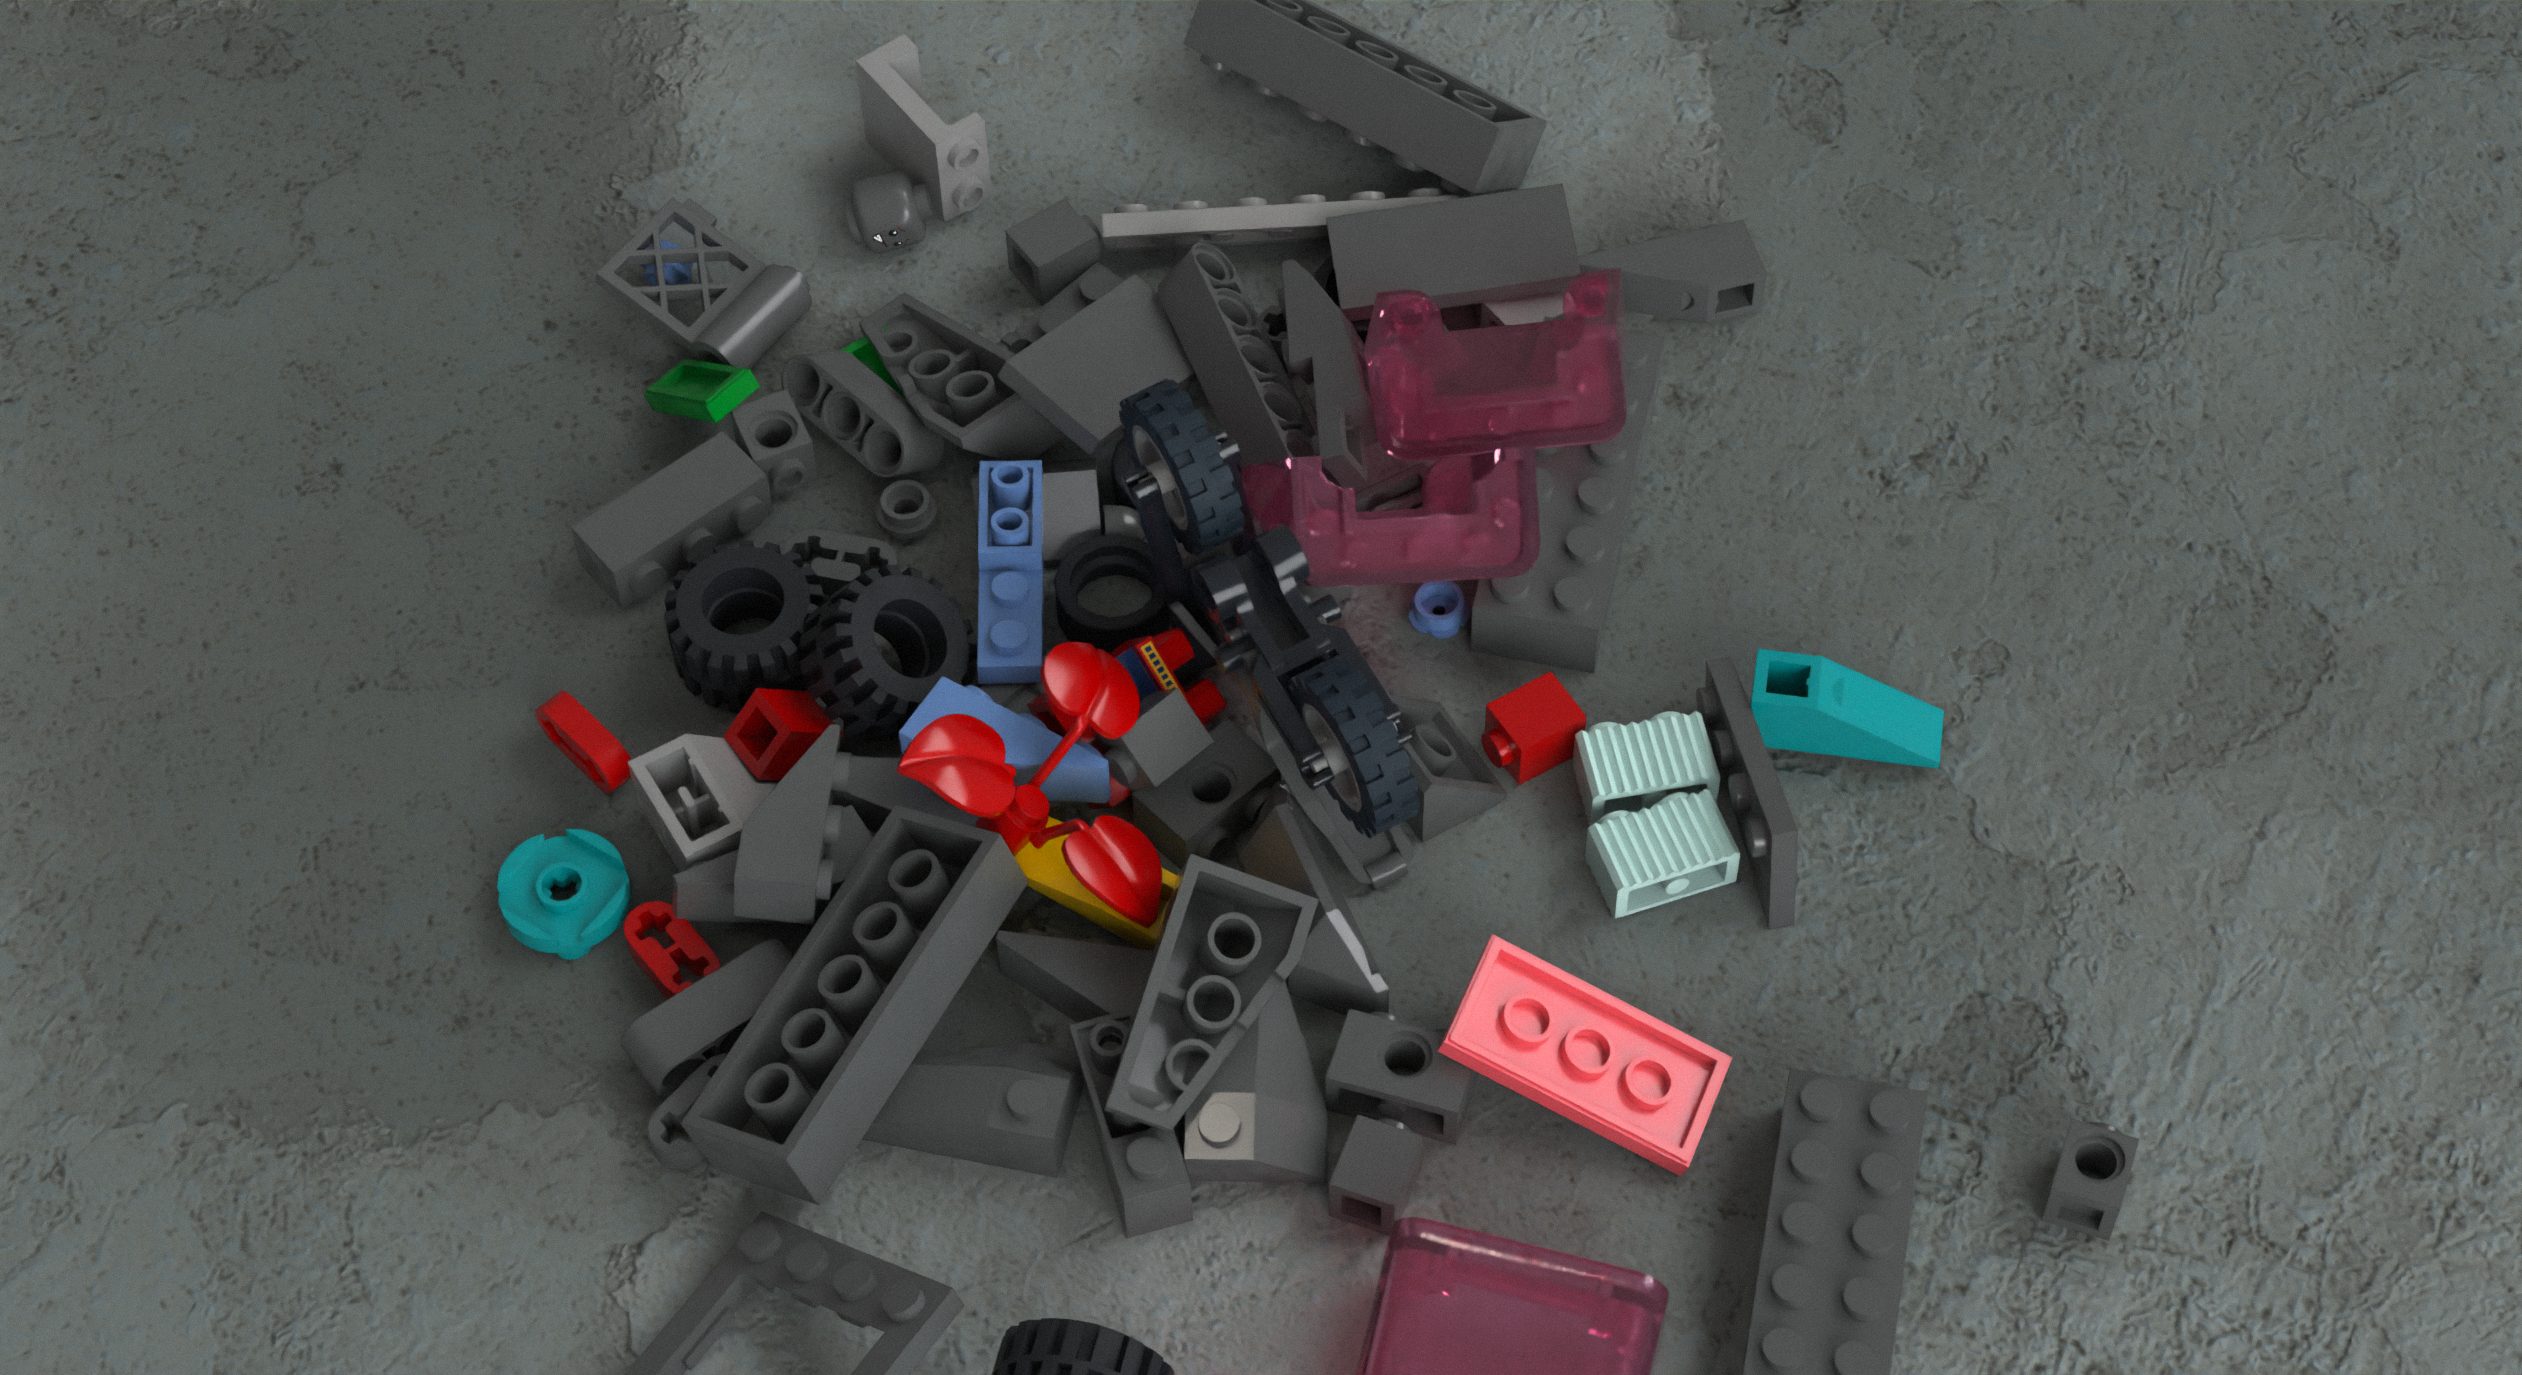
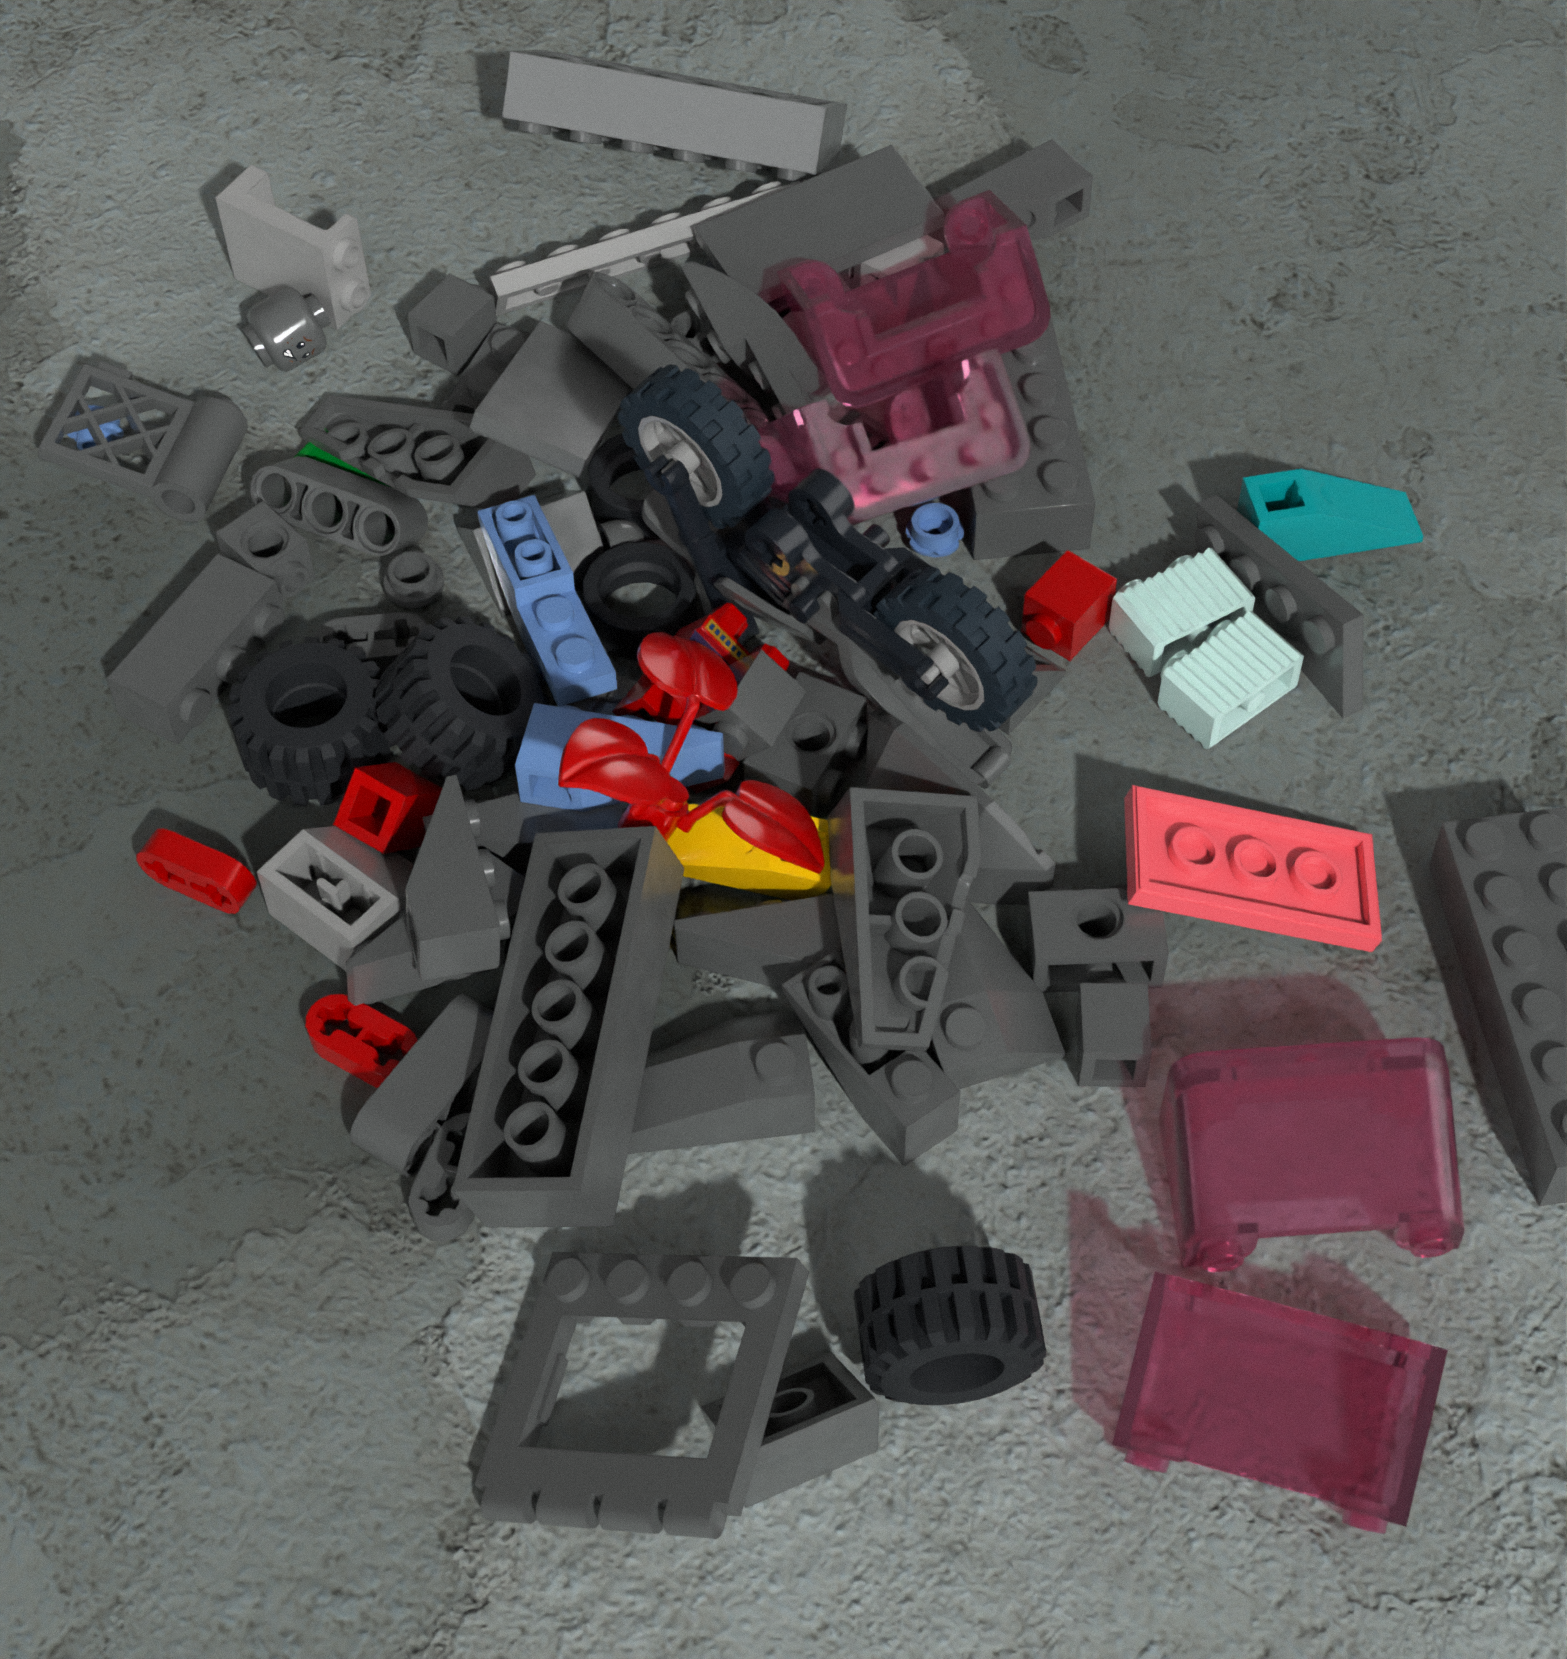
camera: 20 degrees left, 0 degrees up
(571, 924) = (238, 1048): teal plate -> none
(701, 390) = (178, 526): green tile -> none

